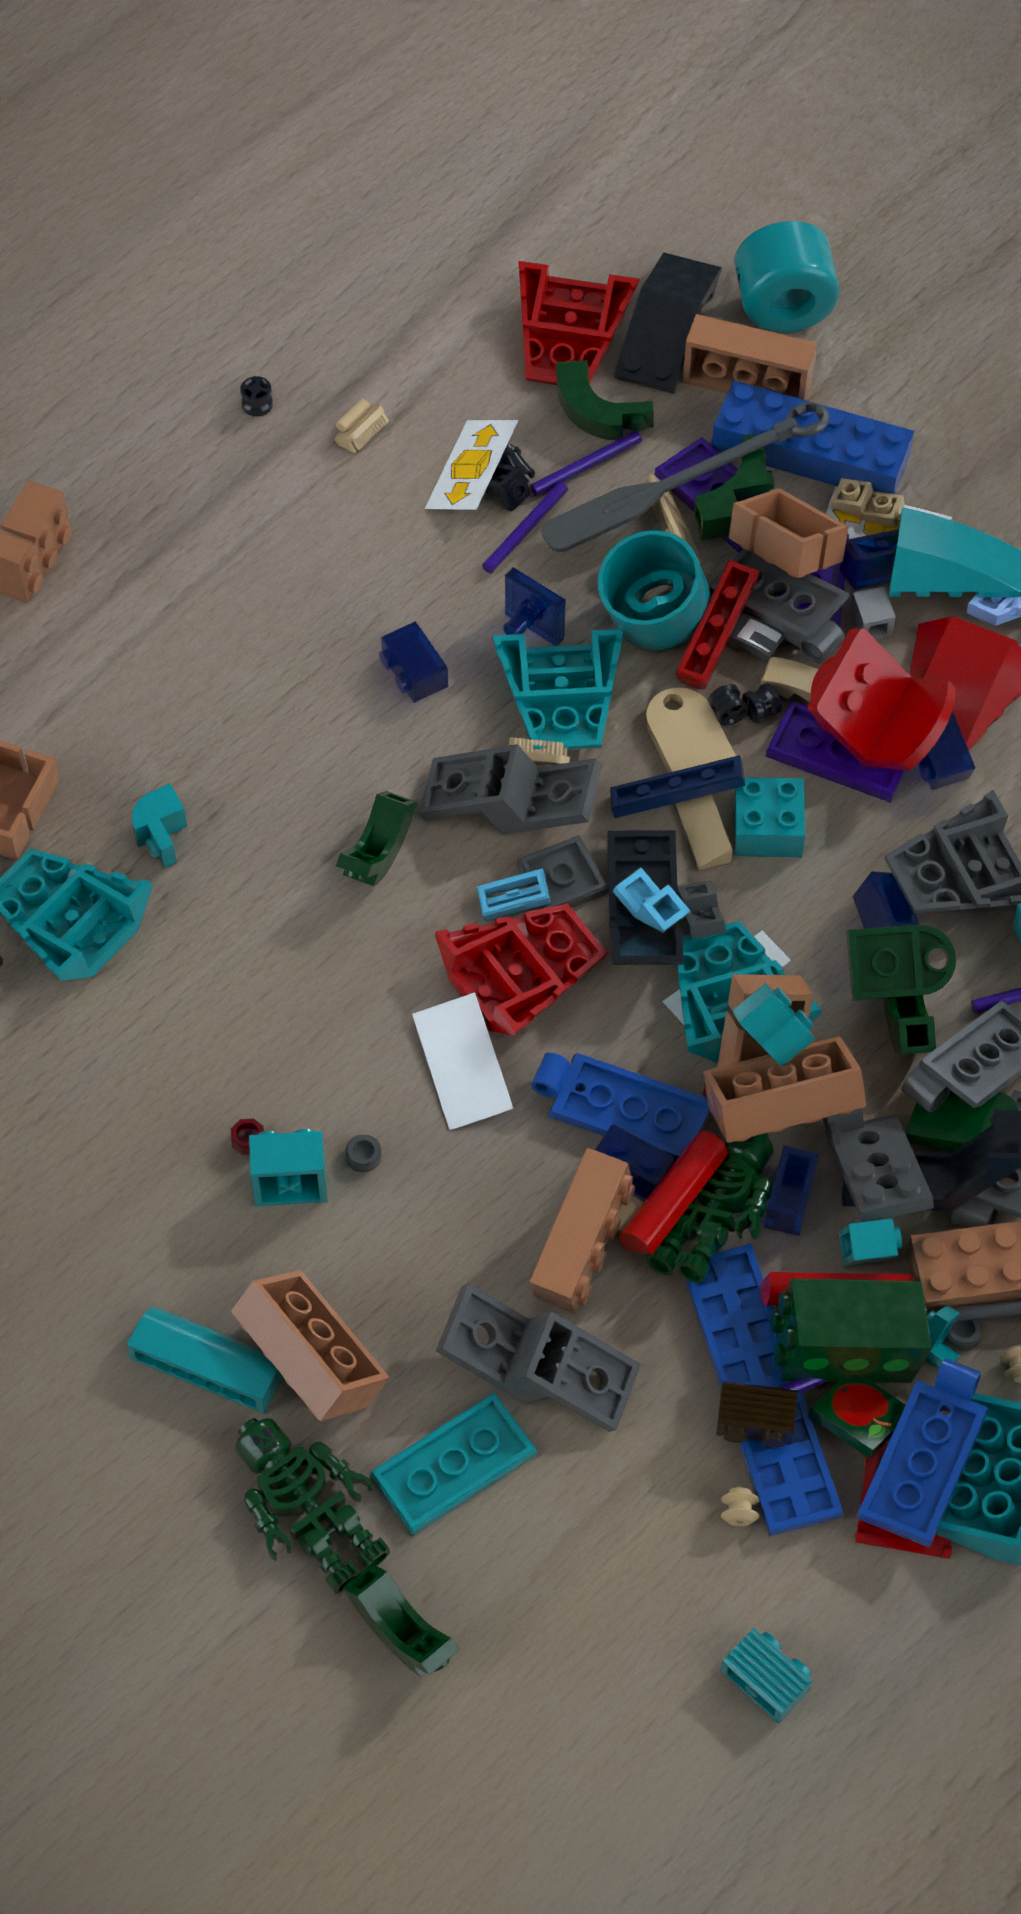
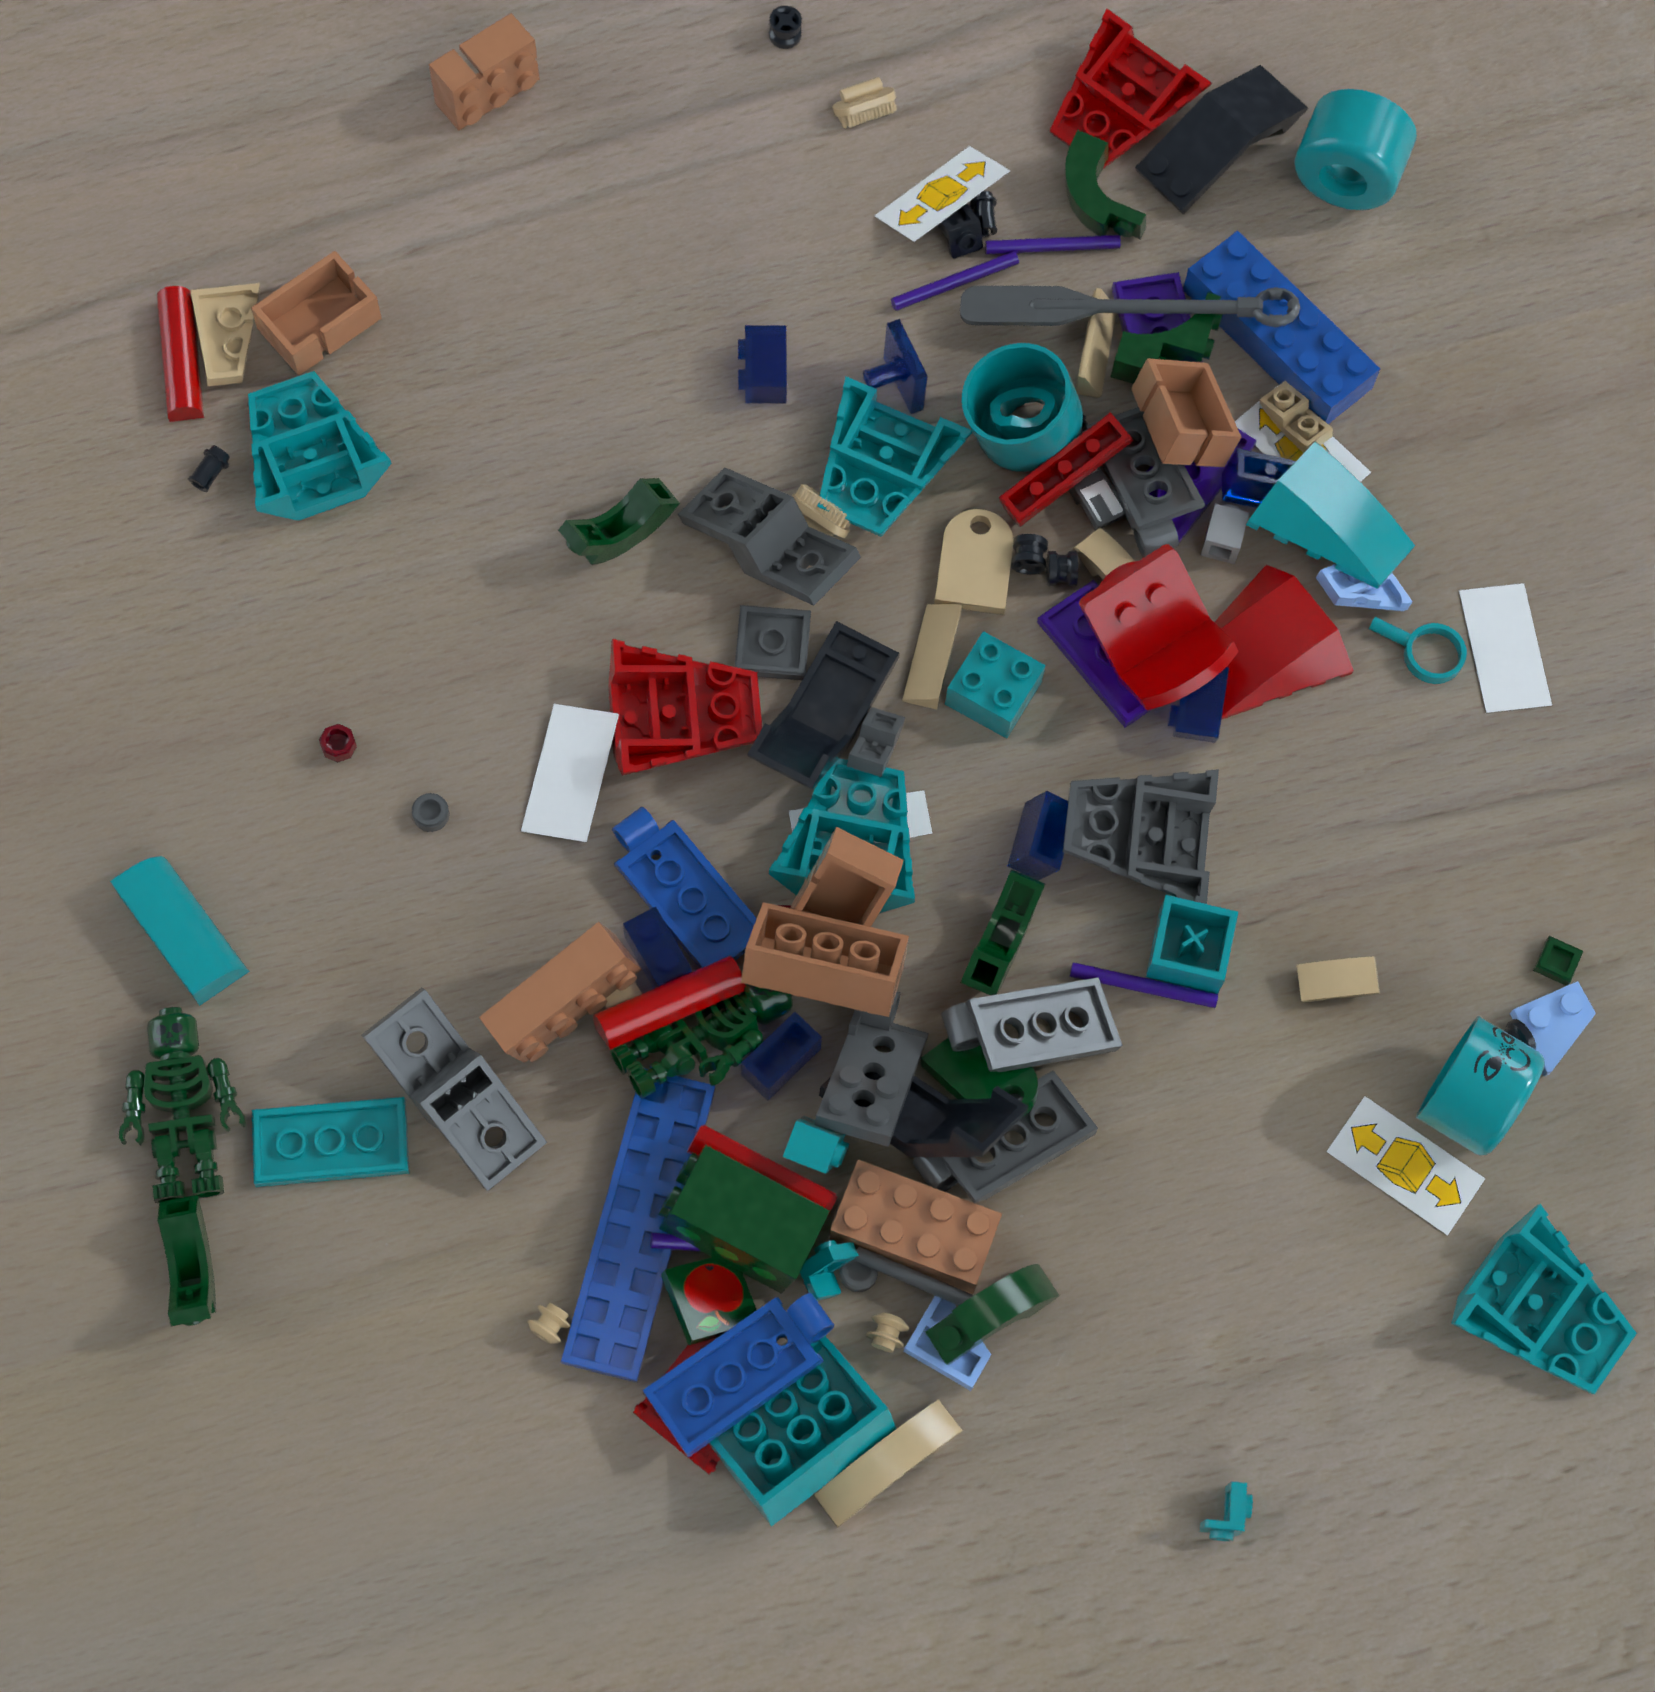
camera: 25 degrees right, 10 degrees up
(155, 818) = (437, 398): teal brick -> none
(288, 1167) = (346, 792): teal brick -> none
(309, 1345) = (263, 967): nougat brick -> none
(516, 899) = (740, 645): medium azure tile -> none
(649, 903) = (828, 711): medium azure slope -> none
(677, 786) = (926, 611): dark blue tile -> none
(732, 351) = (1272, 219): nougat brick -> none
(757, 1414) = (611, 1248): dark brown brick -> none
(767, 1674) = (475, 1488): teal brick -> none
(774, 1023) = (841, 896): teal brick -> none
(895, 961) = (1012, 890): dark green tile -> none

